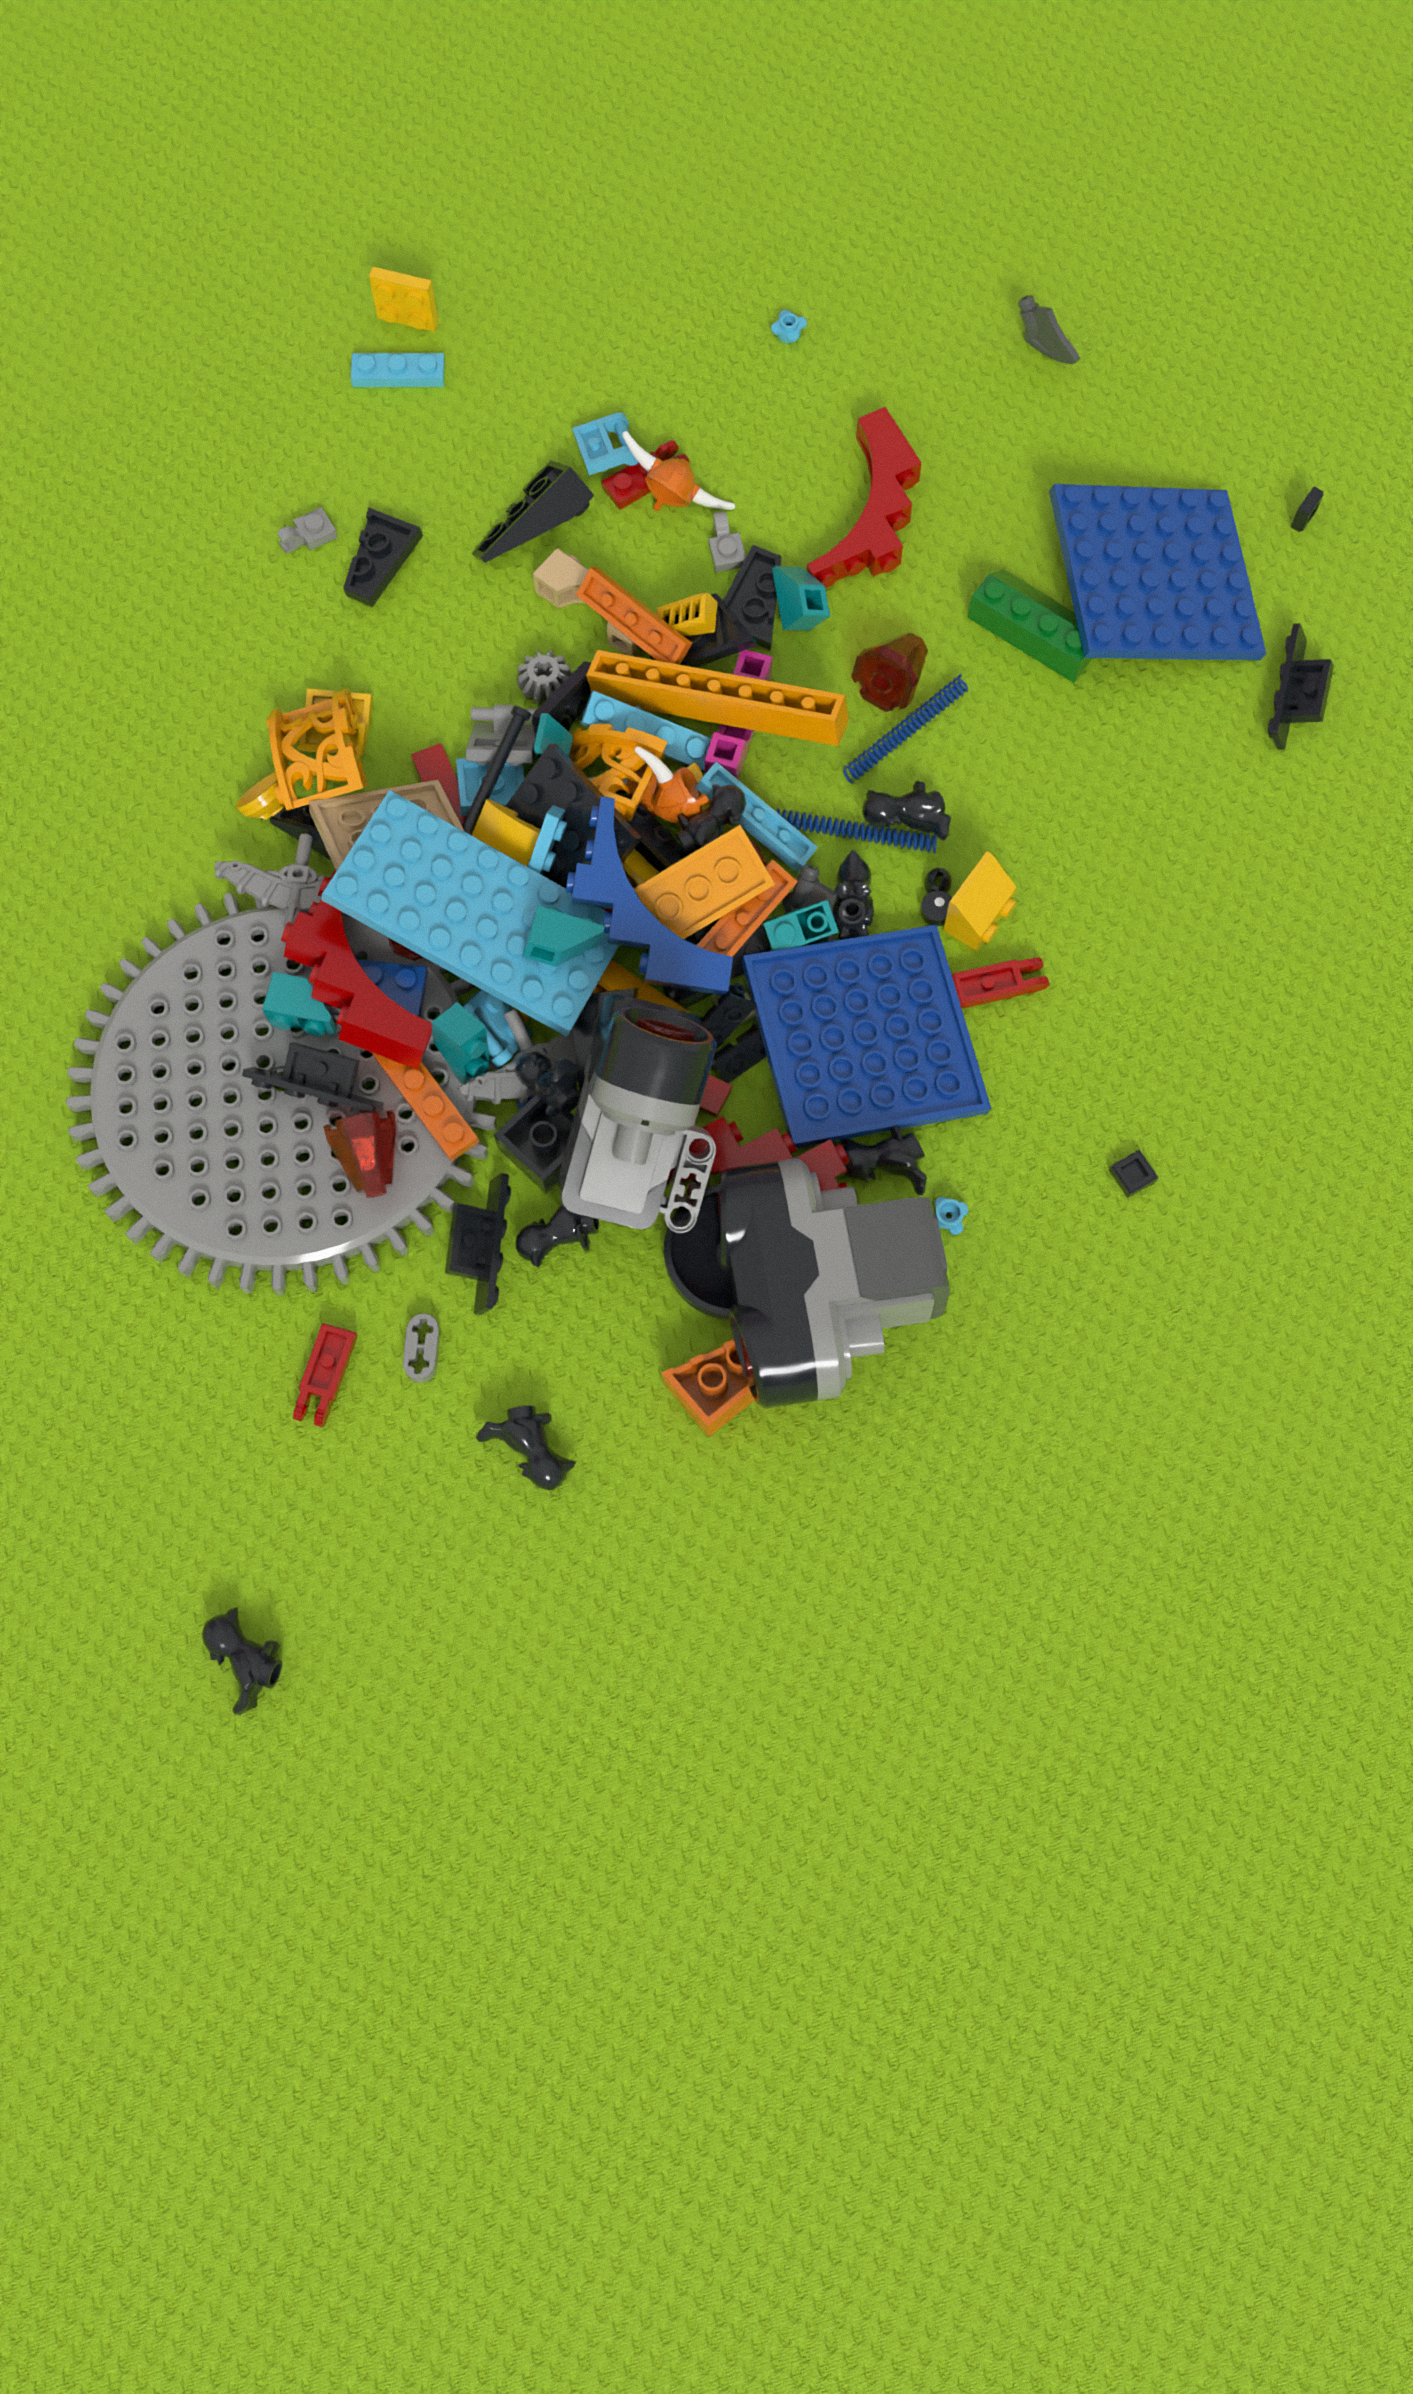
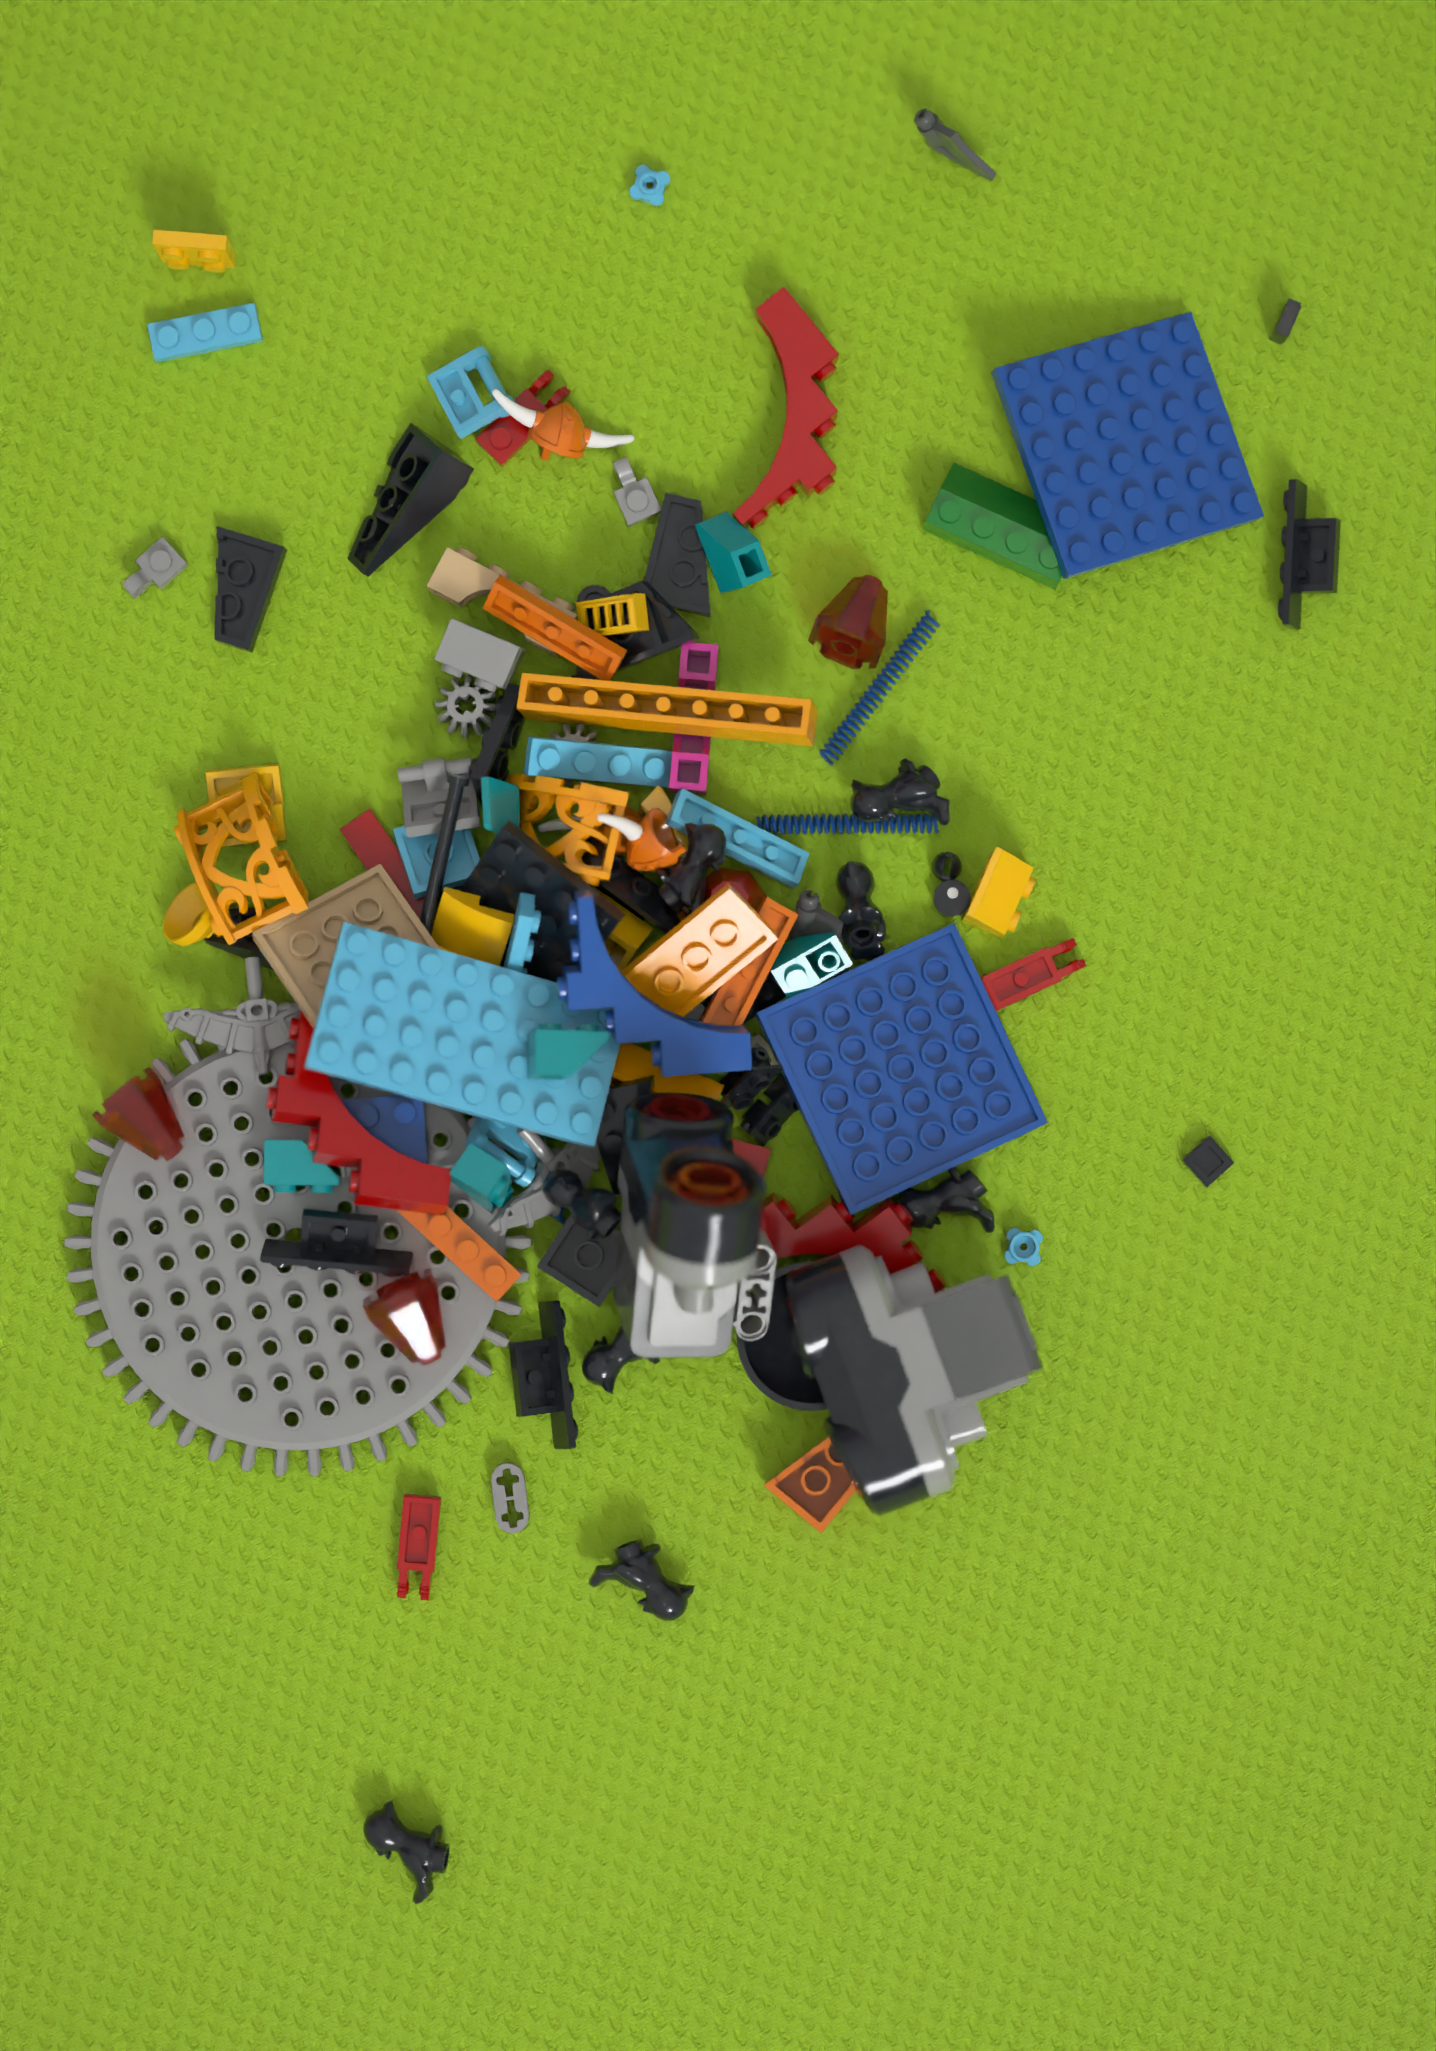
camera: 15 degrees left, 15 degrees up
(170, 933) = (144, 1117): none -> clear red cone
(565, 628) = (479, 655): none -> light grey slope

